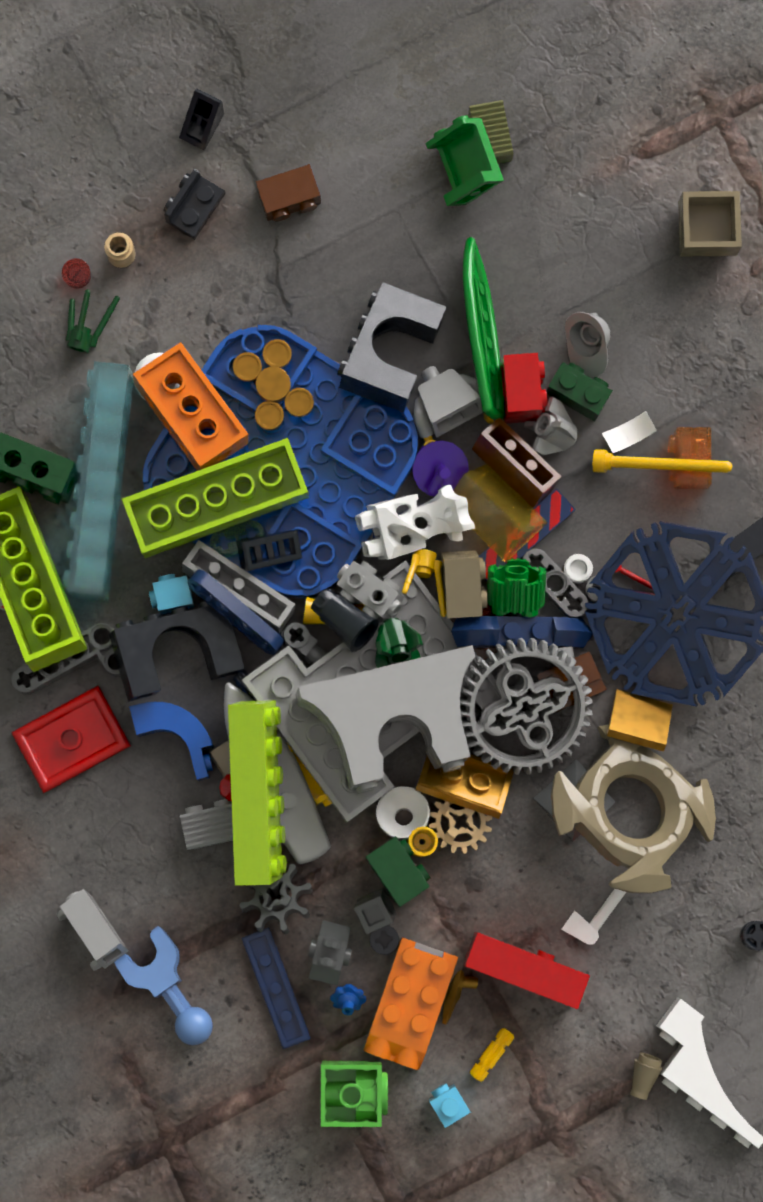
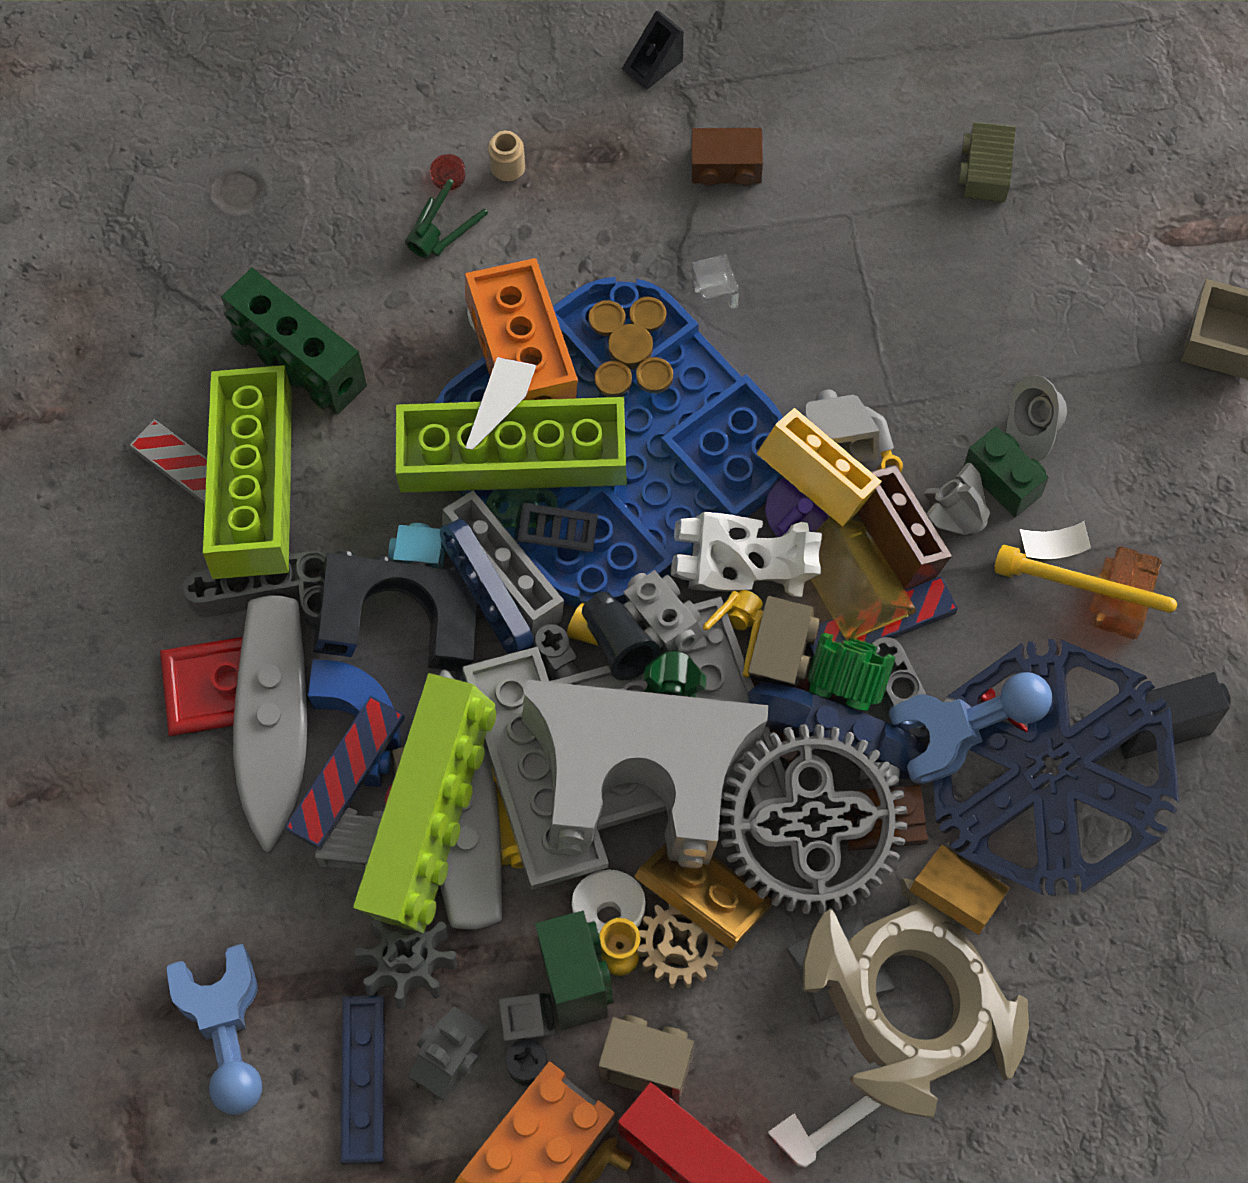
camera: 25 degrees right, 15 degrees down
(93, 929) = (157, 917): light grey brick -> none
(100, 482) = (388, 374): clear light blue brick -> none
(112, 755) = (270, 716): none -> light grey piece
(186, 783) = (345, 773): none -> dark blue tile
(193, 204) = (610, 137): black bracket -> none
(198, 466) = (503, 393): none -> white sticker
(316, 305) = (715, 280): none -> clear panel
(348, 998) = (450, 1123): blue plant -> none
(390, 312) = (798, 313): arch -> none
(445, 441) = (818, 467): none -> yellow brick
(466, 159) = (951, 175): green panel -> none
(467, 913) = (644, 1055): none -> dark tan piece
(482, 332) = (907, 368): green piece -> none
(522, 387) = (937, 440): red brick -> none
(578, 568) = (938, 680): white tile -> none
(603, 606) = (956, 725): none -> medium blue piece

